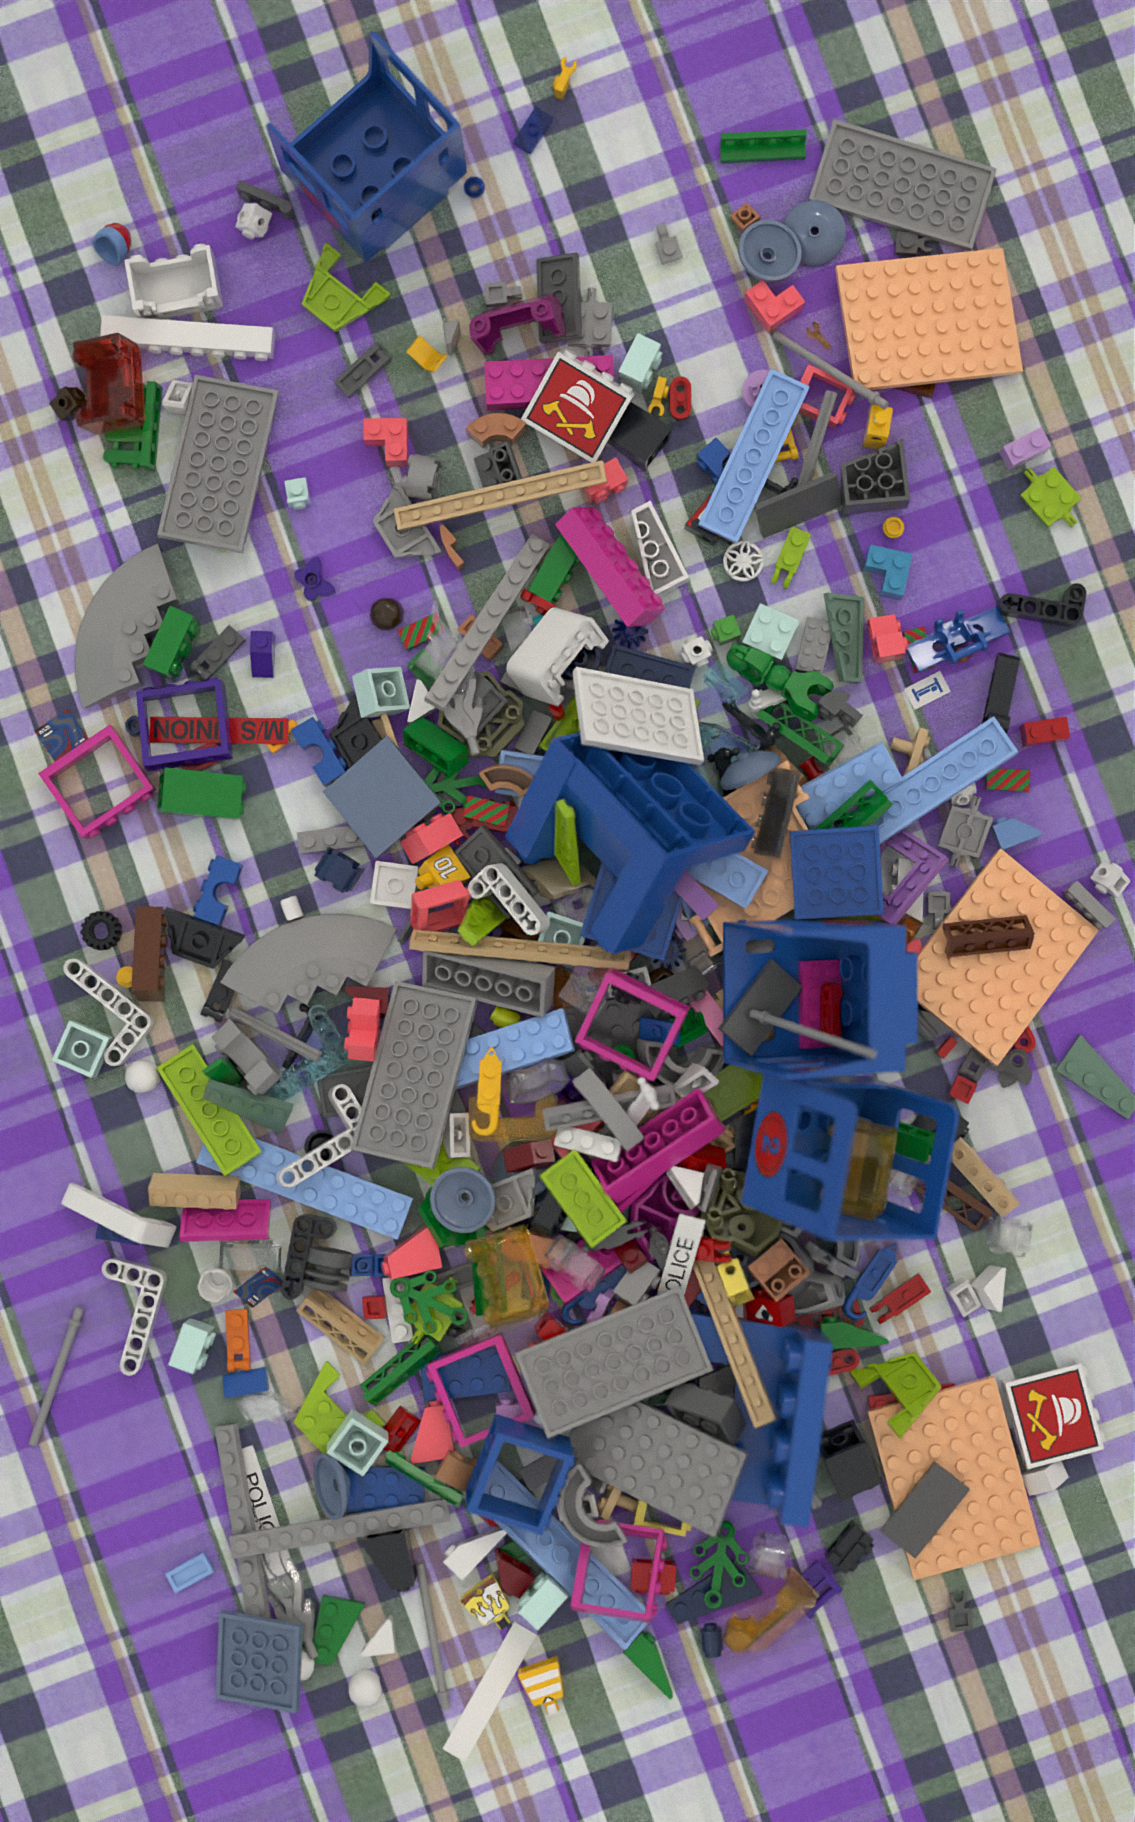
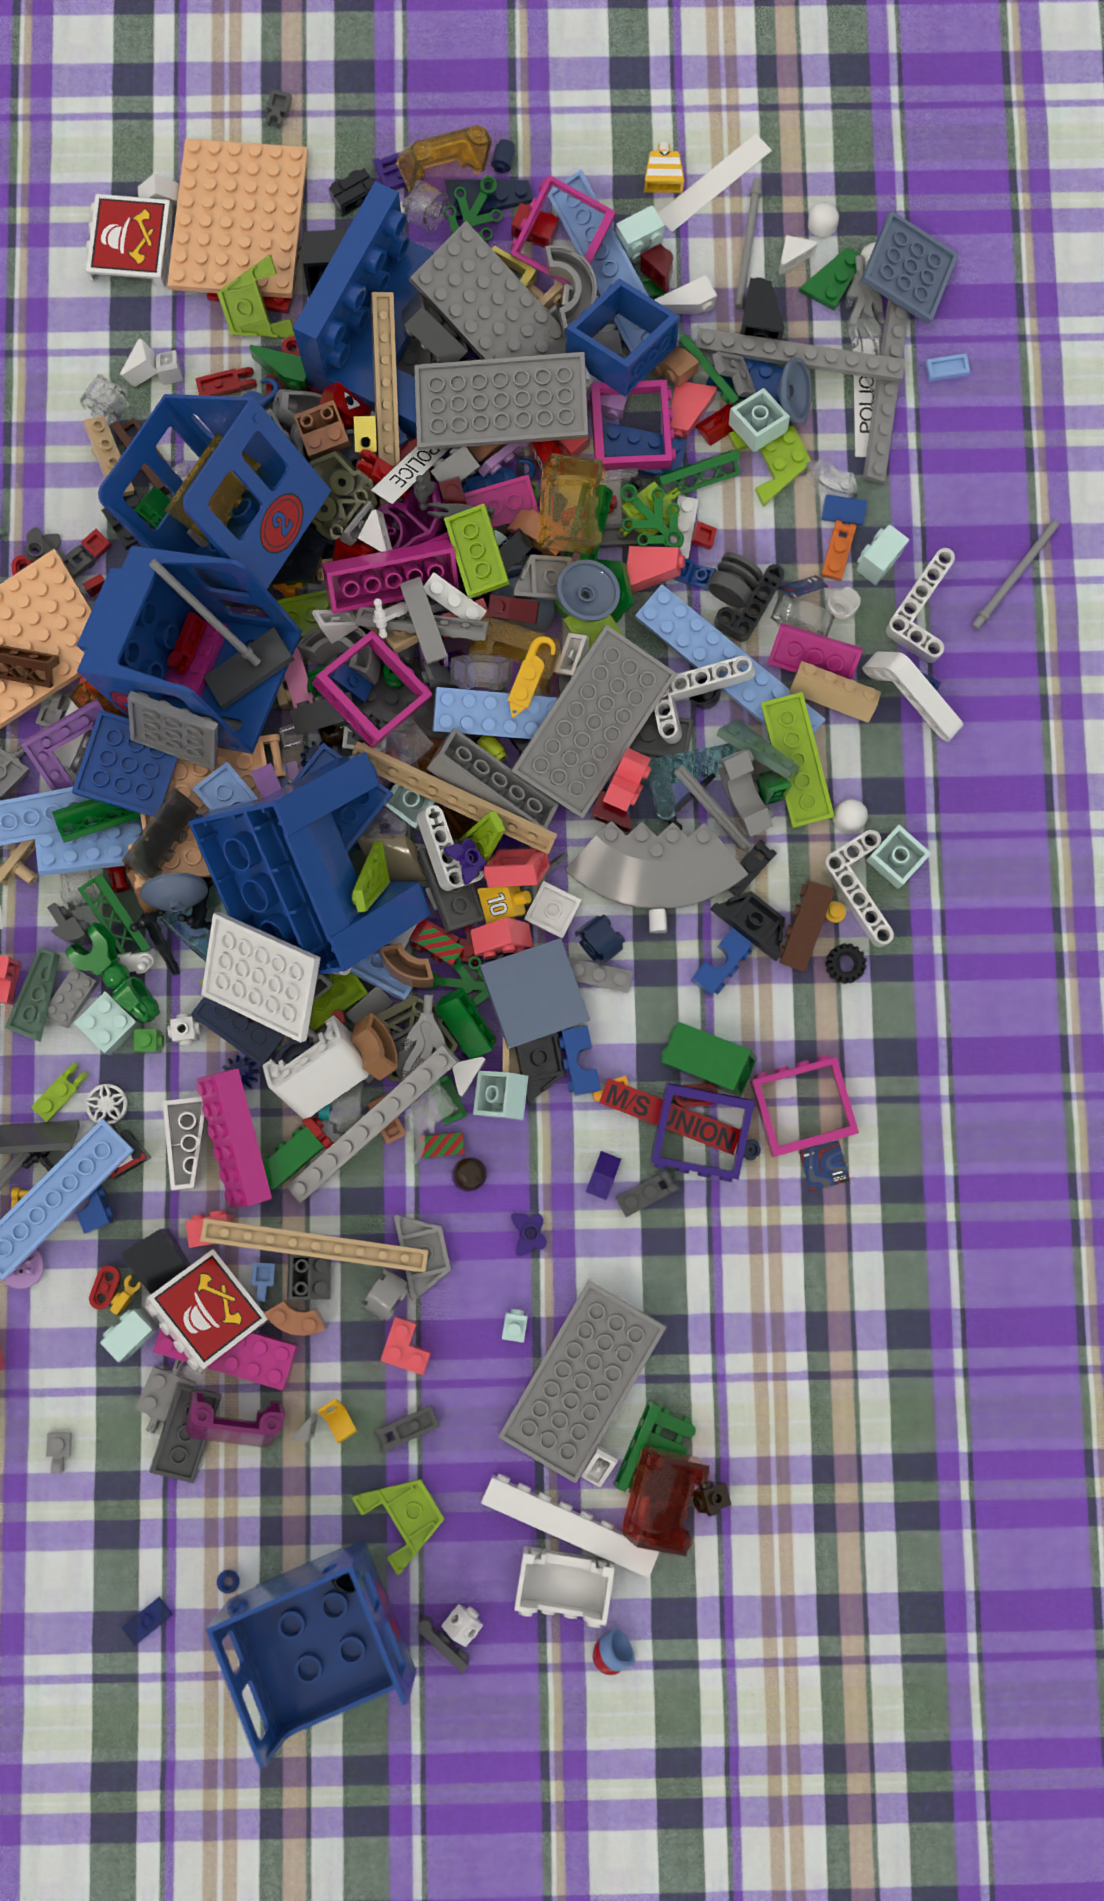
camera: 170 degrees left, 5 degrees down
(119, 626) = (734, 1254): light grey brick -> none
(172, 643) = (687, 1214): green brick -> none
(342, 1322) = (737, 532): tan fence -> none
(397, 1488) = (735, 367): none -> light grey plate
(449, 543) = (384, 1223): nougat slope -> none
(486, 897) = (468, 857): none -> dark purple animal
(487, 1602) = (689, 253): torso -> none
(498, 294) = (244, 1459): light grey plate -> none
(508, 690) = (375, 1046): none -> medium nougat brick
(541, 456) = (263, 1276): none -> medium blue plate
(562, 82) = (98, 1661): yellow plate -> none
(574, 1263) = (506, 504): clear brick -> none
(646, 1657) = (565, 157): green slope -> none
(729, 687) = (170, 994): clear light blue bracket -> none
(799, 909) = (173, 730): none -> light grey plate
(925, 1509) = (273, 196): dark grey tile -> none

